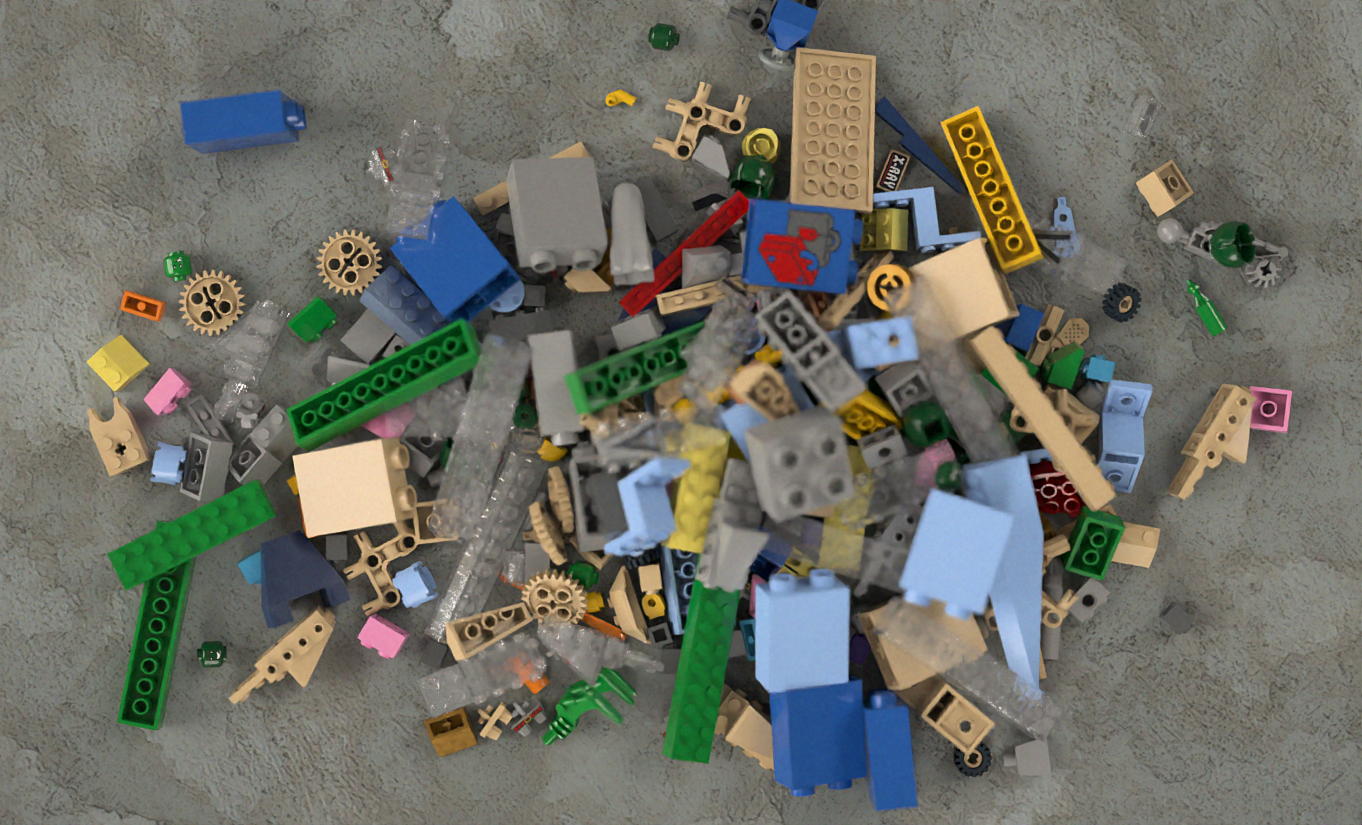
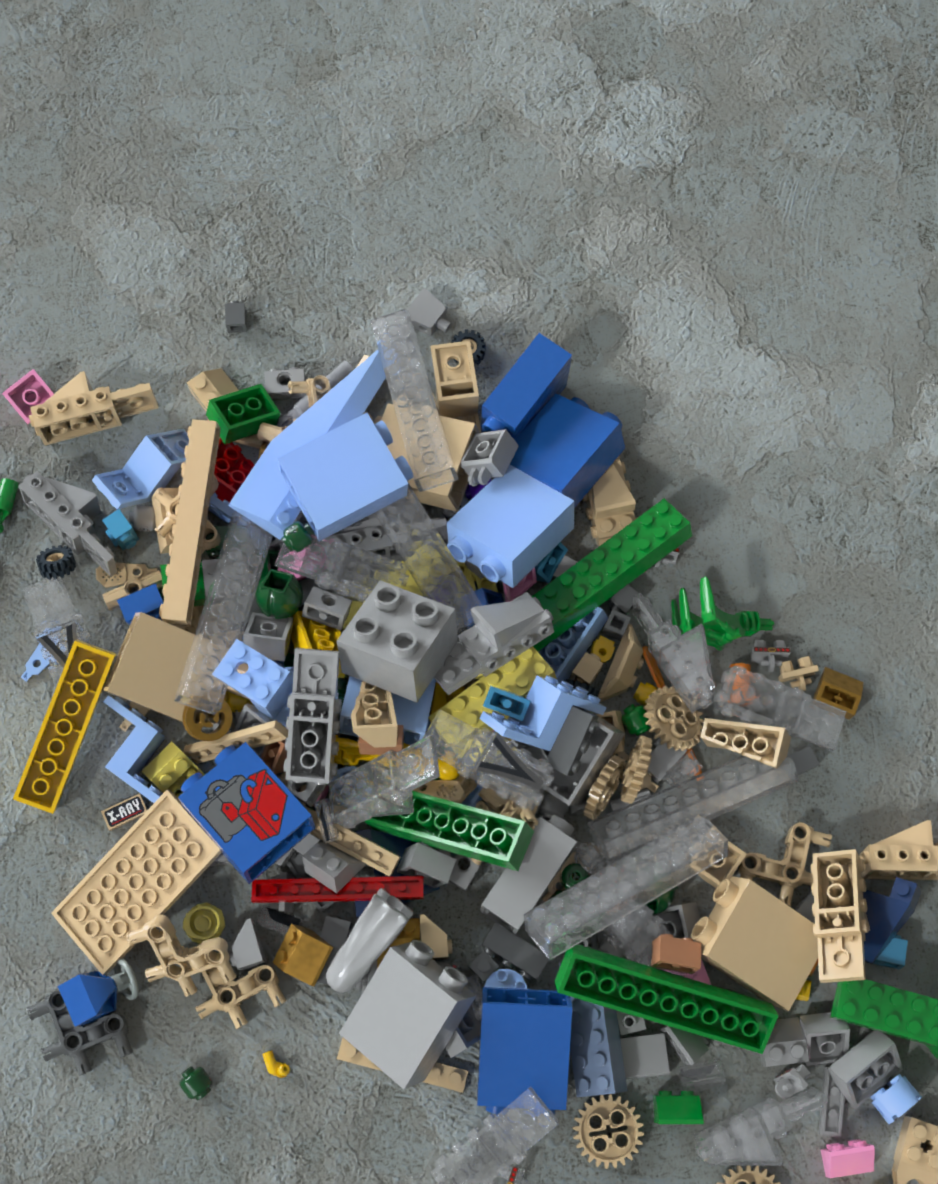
camera: 135 degrees left, 15 degrees down
(312, 554) = (839, 915): none -> tan wedge
(383, 636) = (832, 807): bright pink brick -> none
(404, 422) = (676, 954): none -> nougat brick
(415, 585) = (773, 824): light blue brick -> none
(435, 477) = (684, 893): light grey piece -> none
(551, 453) = (580, 834): yellow piece -> none
(669, 188) = (302, 954): none -> pearl gold slope
(679, 489) = (506, 703): none -> dark azure slope
(748, 105) = (171, 952): none -> tan pin
(753, 177) = (231, 902): dark green piece -> none
(867, 671) = (488, 456): none -> light grey hinge
(915, 145) = (88, 815): dark blue slope -> none
(1063, 365) = (140, 554): green slope -> none
(1148, 345) = (69, 514): none -> light grey wedge

